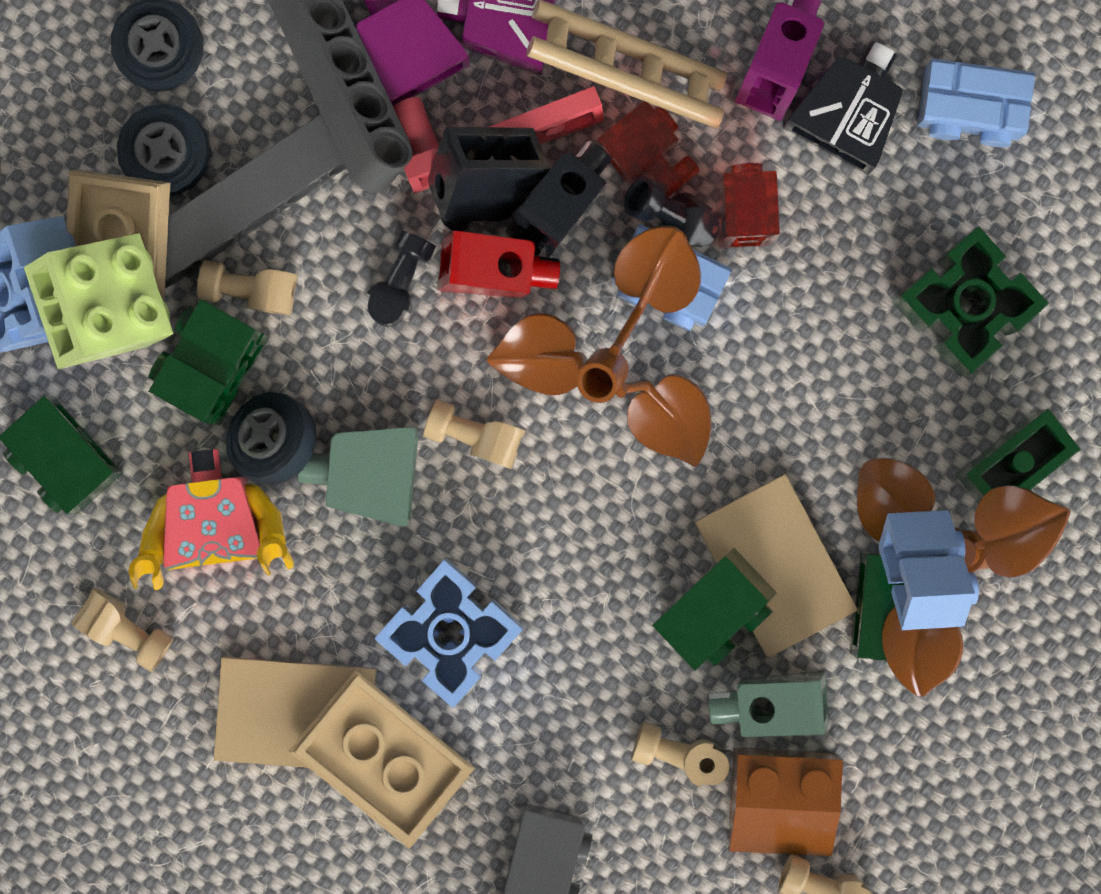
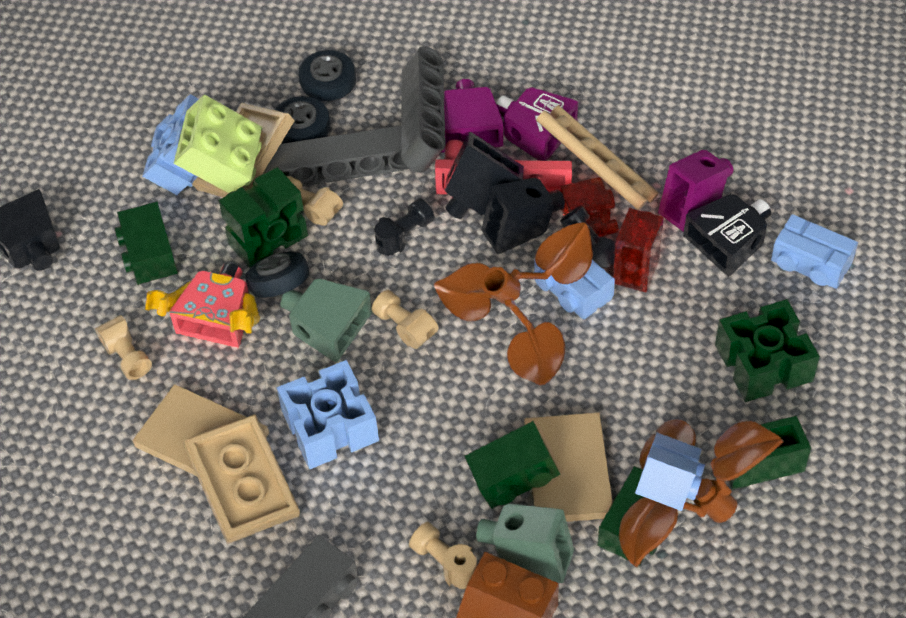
camera: 25 degrees right, 35 degrees down
(472, 260) = (461, 229): red torso -> none

